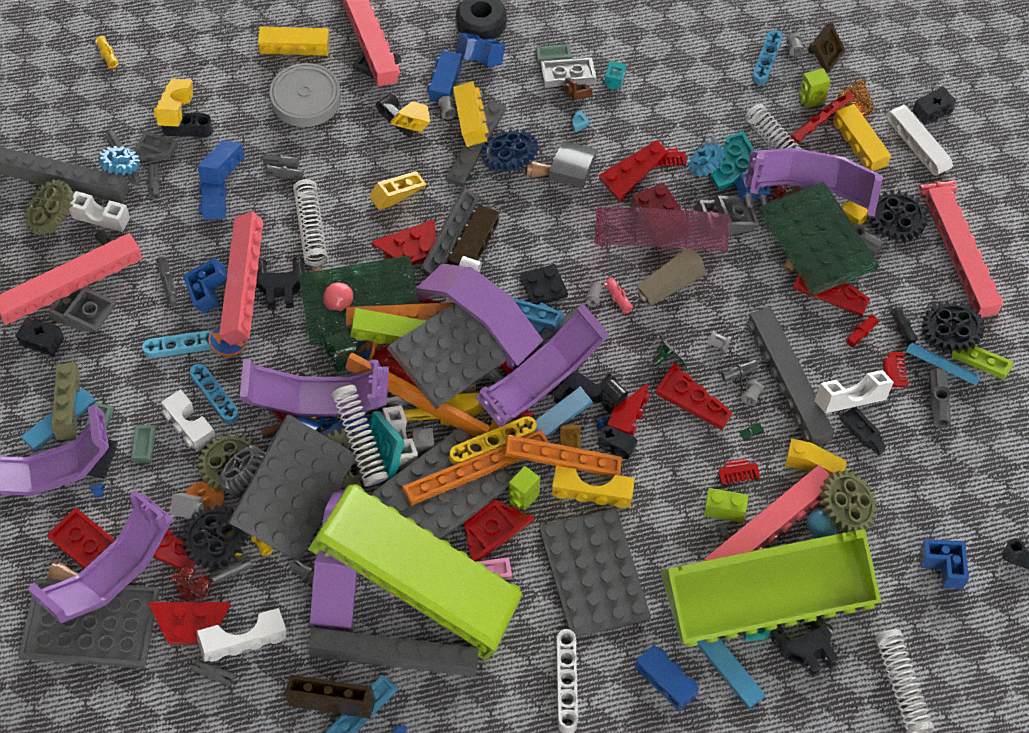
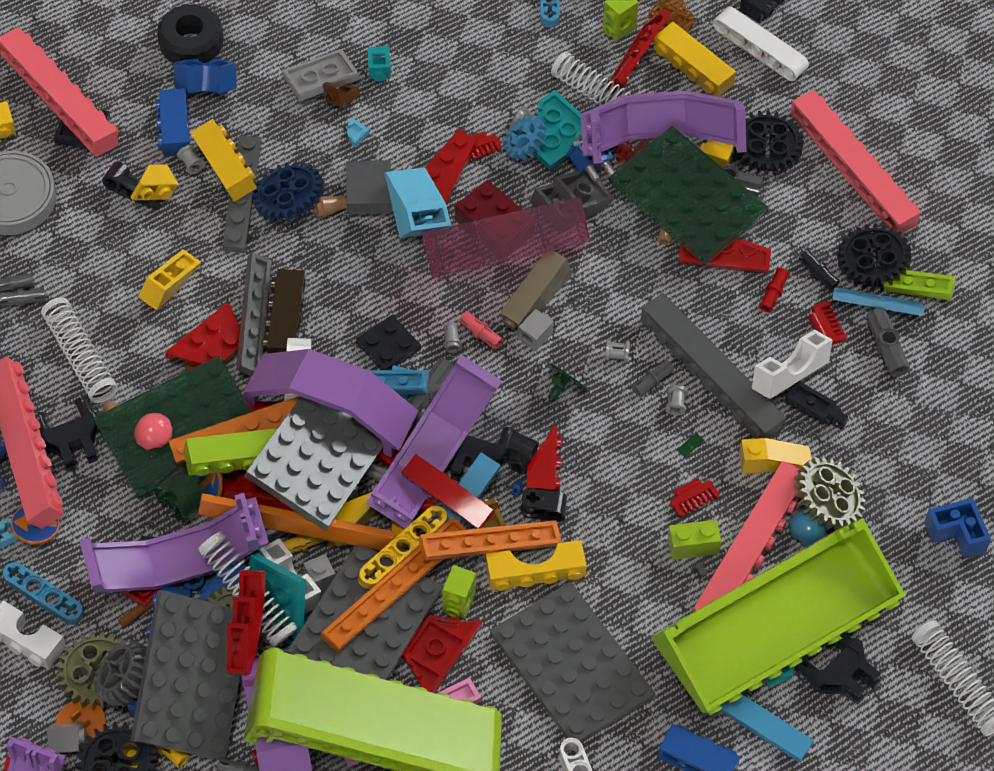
camera: 20 degrees left, 0 degrees up
(344, 465) = (246, 623): none -> red slope
(543, 409) = (447, 492): none -> red slope
(554, 52) = (293, 55): sand green tile -> none
(602, 183) = (416, 202): none -> medium azure slope
(661, 307) = (535, 329): none -> light grey brick
(685, 393) = (601, 424): red wing -> none
(936, 184) = (799, 92): coral pin -> none

